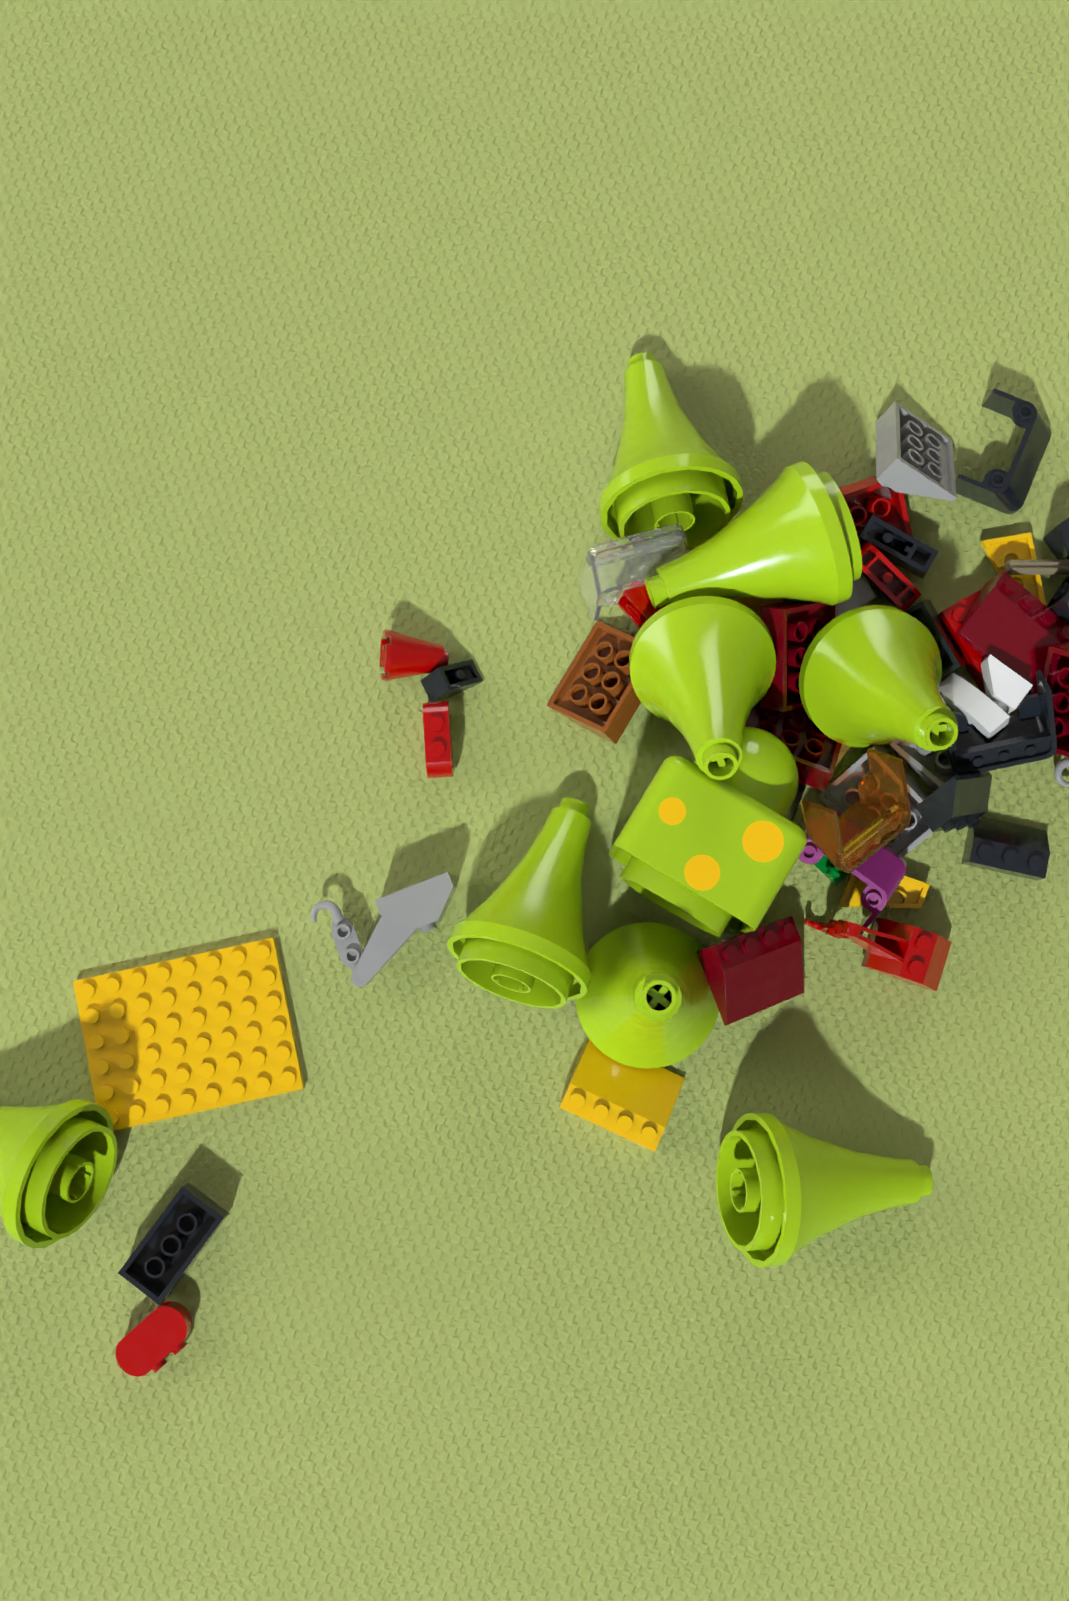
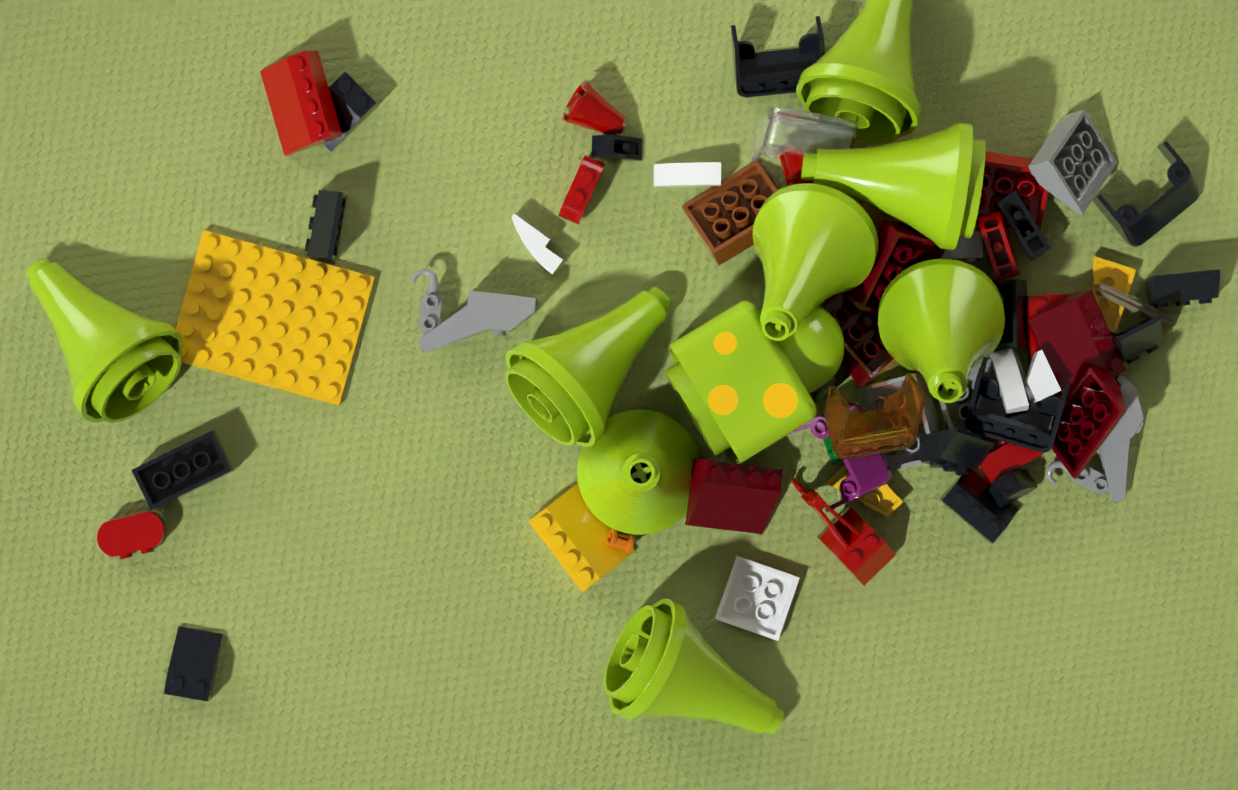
camera: 20 degrees right, 5 degrees up
(107, 798) = (301, 102): none -> red slope
(152, 789) = (351, 107): none -> black slope
(196, 910) = (326, 225): none -> black slope
(288, 1444) = (193, 664): none -> black slope
(421, 819) = (536, 245): none -> white slope
(536, 670) = (687, 174): none -> white slope
(571, 522) = (774, 70): none -> black windscreen
(664, 1076) = (620, 540): none -> orange bush
(834, 1061) = (757, 598): none -> white plate
(1009, 786) = (1005, 459): none -> red brick
(1030, 812) = (1012, 487): none -> black slope

